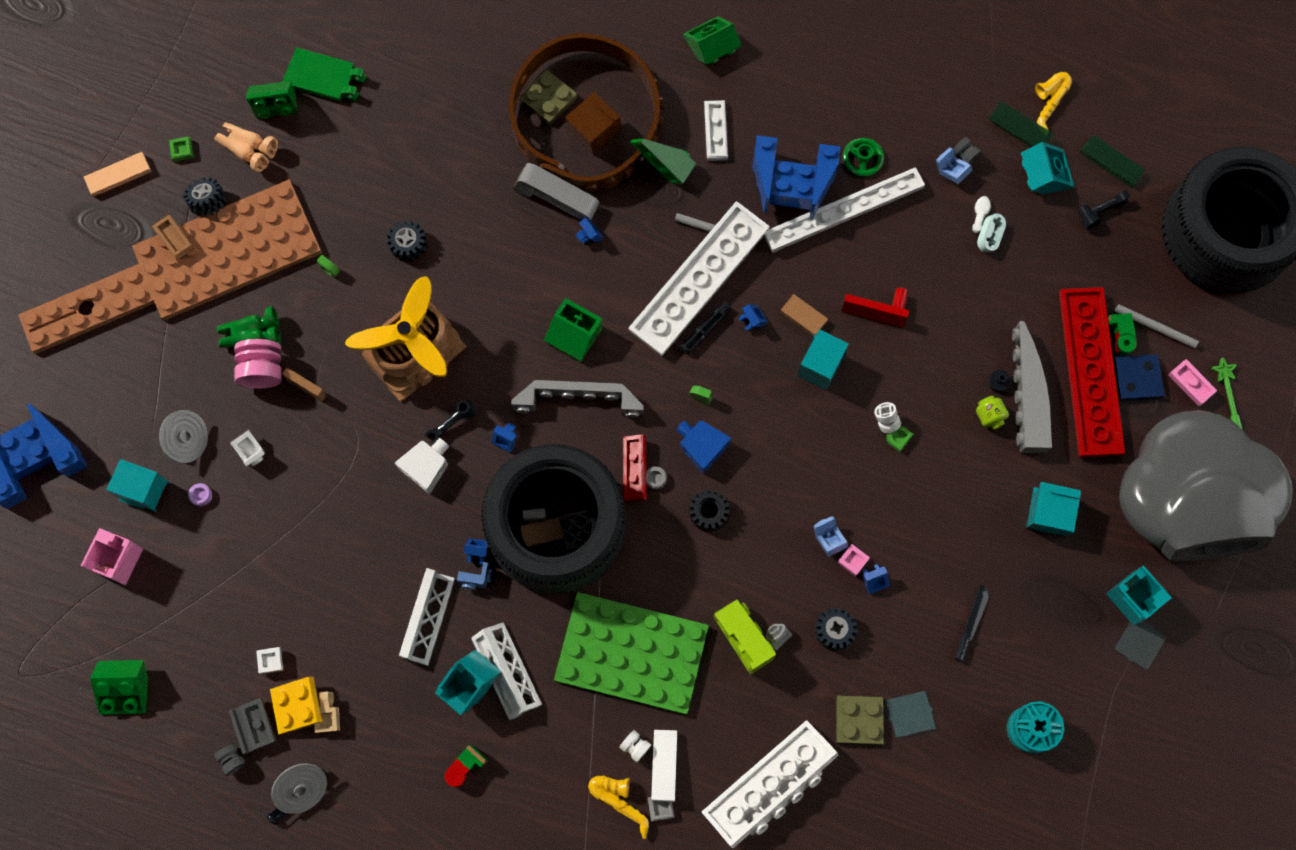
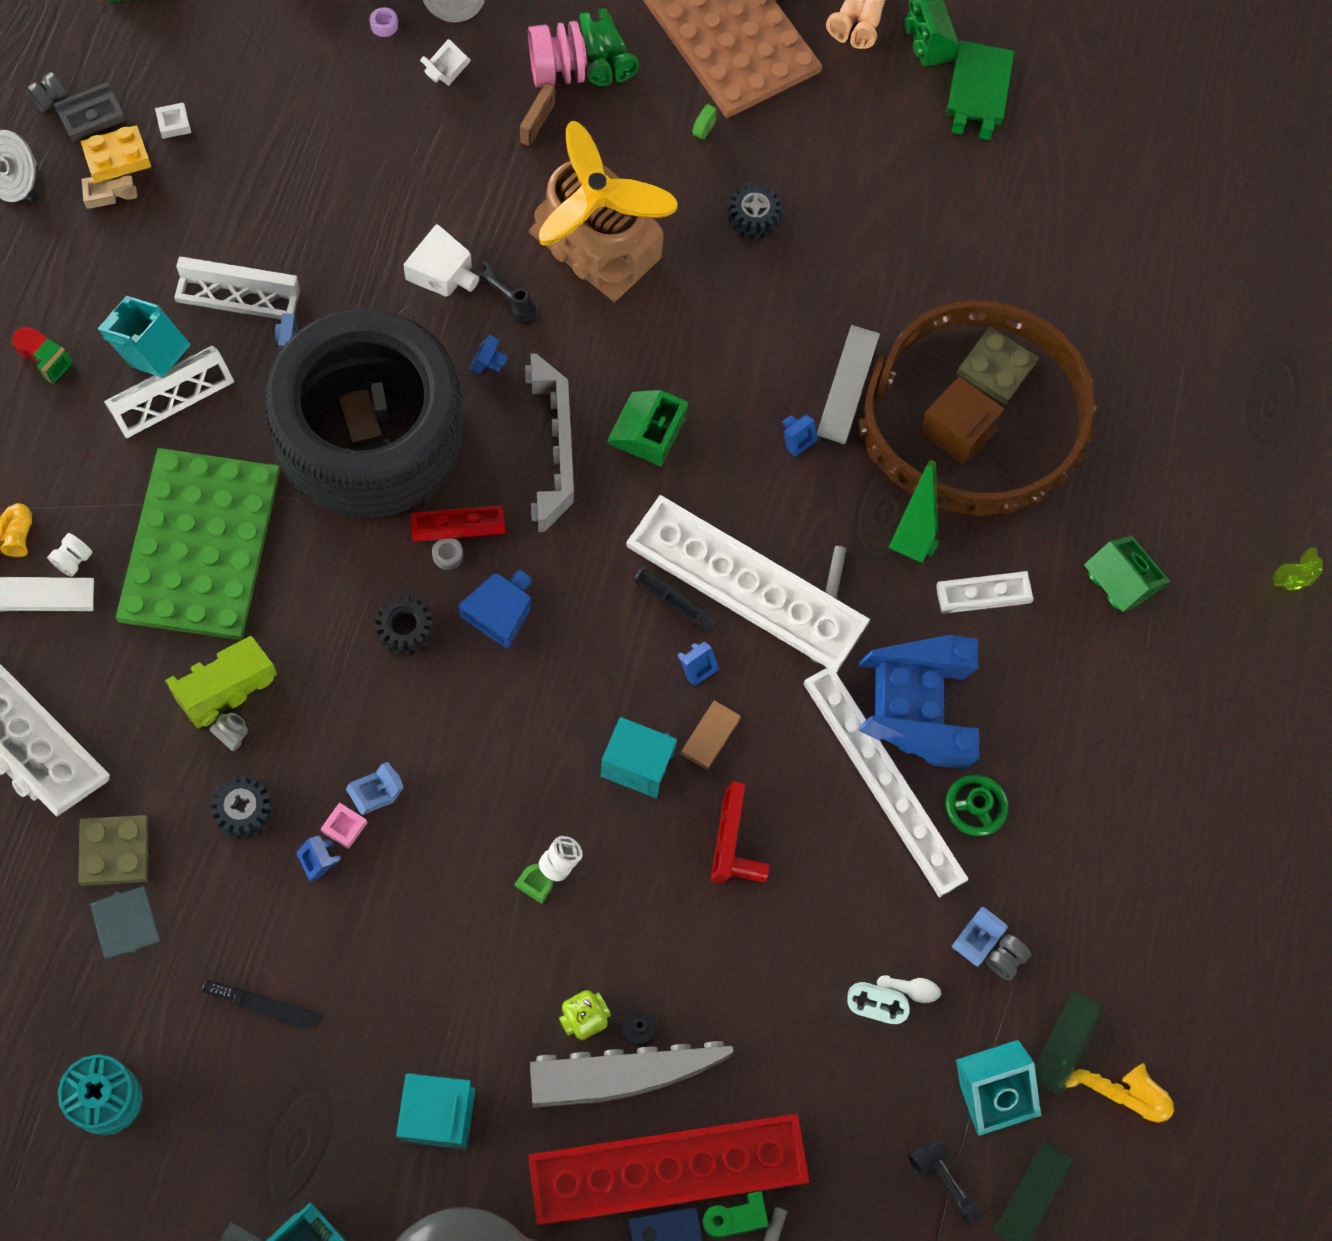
camera: 75 degrees right, 5 degrees down
(701, 394) = (573, 601): bright green tile -> none

